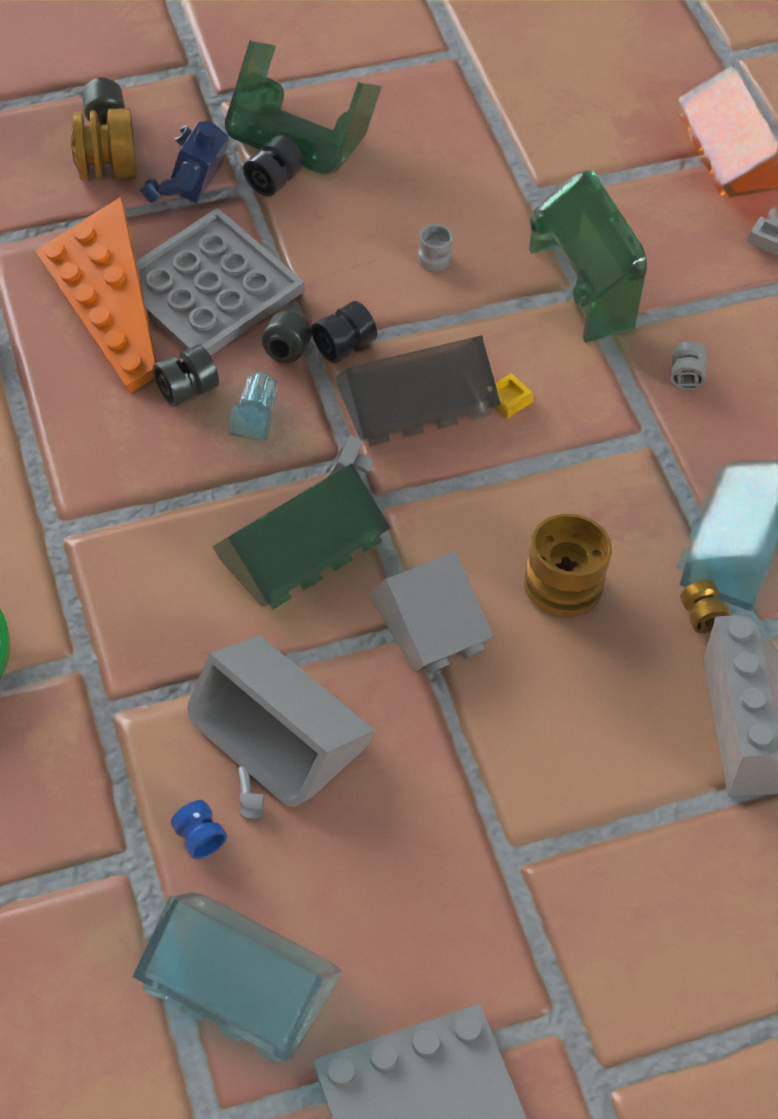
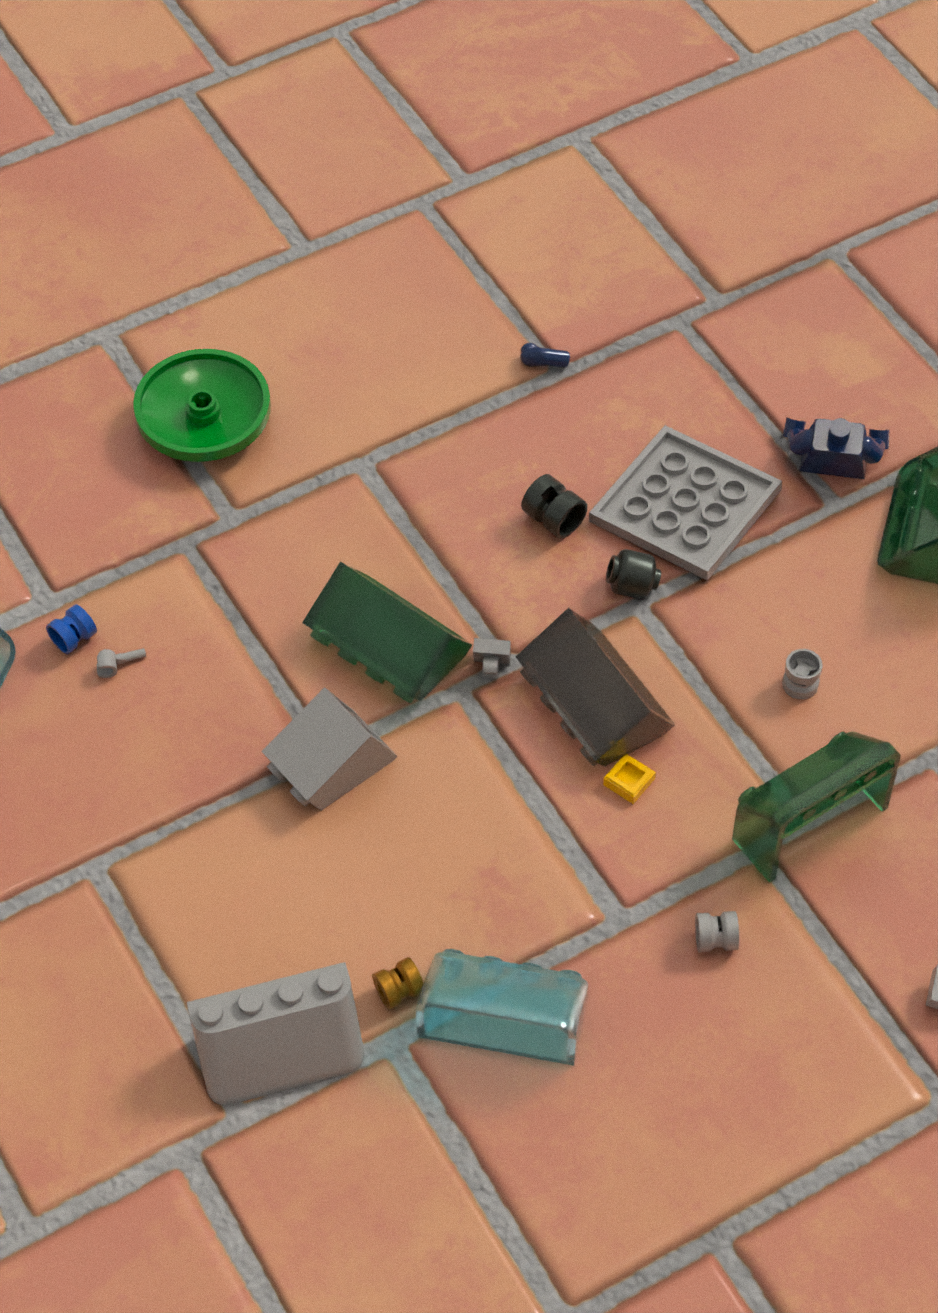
camera: 80 degrees right, 0 degrees up
(100, 96) = (892, 358): pearl dark grey head -> none
(103, 285) = (644, 421): orange wing -> none
(104, 144) = (820, 369): pearl gold wheel -> none
(253, 413) = (525, 570): clear light blue piece -> none
(273, 165) = (872, 515): black wheel -> none
(275, 720) = (190, 658): light grey windscreen -> none
(342, 333) = (655, 618): black wheel -> none
(567, 564) = (404, 847): pearl gold wheel -> none

